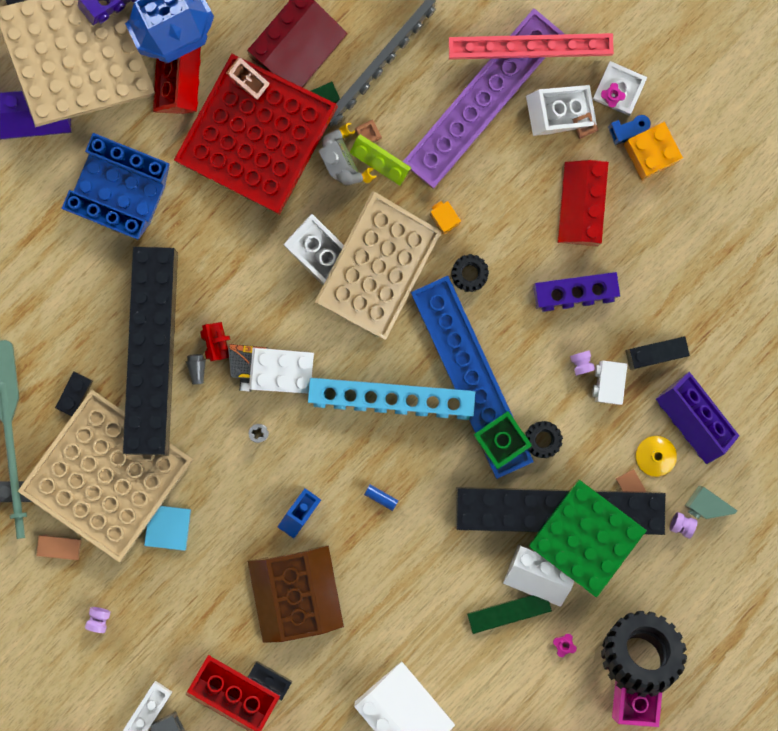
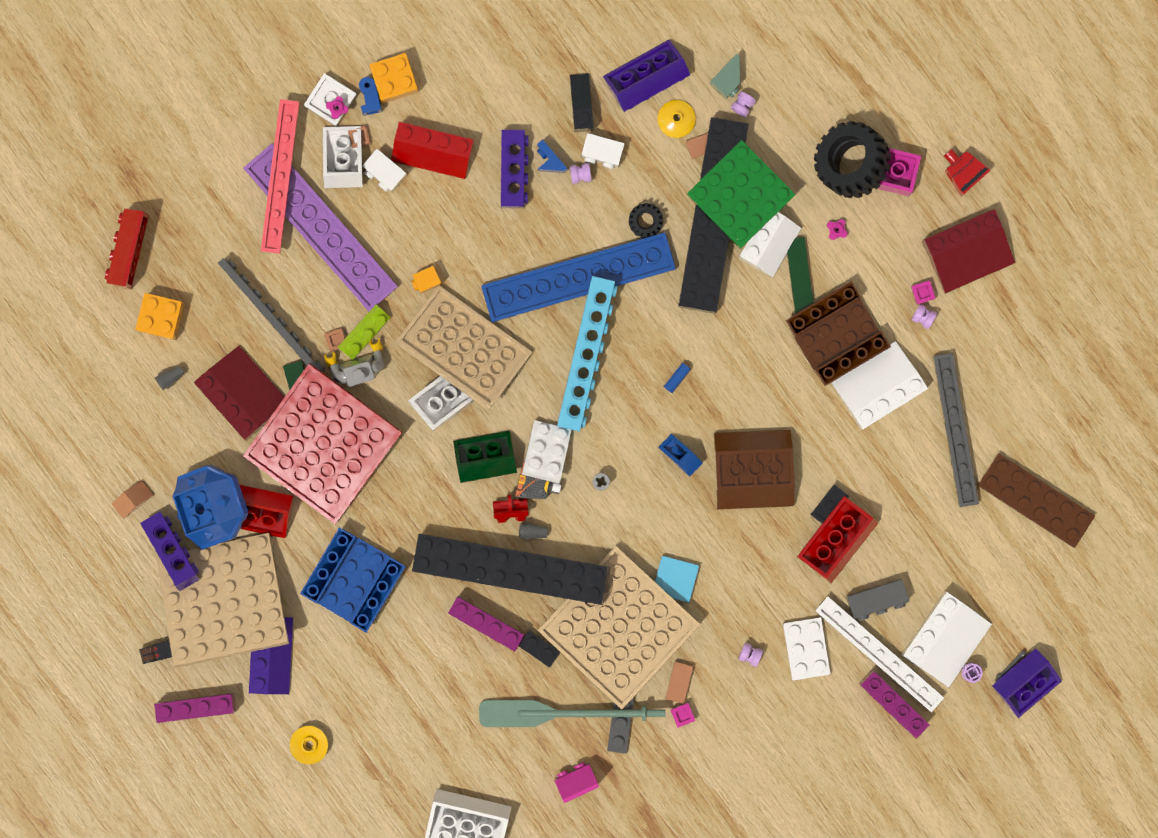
camera: 80 degrees left, 0 degrees up
(24, 556) = (682, 715): none -> dark pink plate
(90, 334) = (486, 623): none -> magenta brick
(113, 678) = (806, 648): none -> white plate
(247, 78) = (272, 442): nougat slope -> none
(267, 306) = (484, 456): none -> dark green slope
(452, 663) = (837, 334): none -> reddish brown slope
(481, 267) = (481, 253): black tyre -> none
(502, 440) = (640, 258): green brick -> none
(553, 156) = (384, 170): none -> white brick
(588, 332) = (553, 163): none -> blue slope

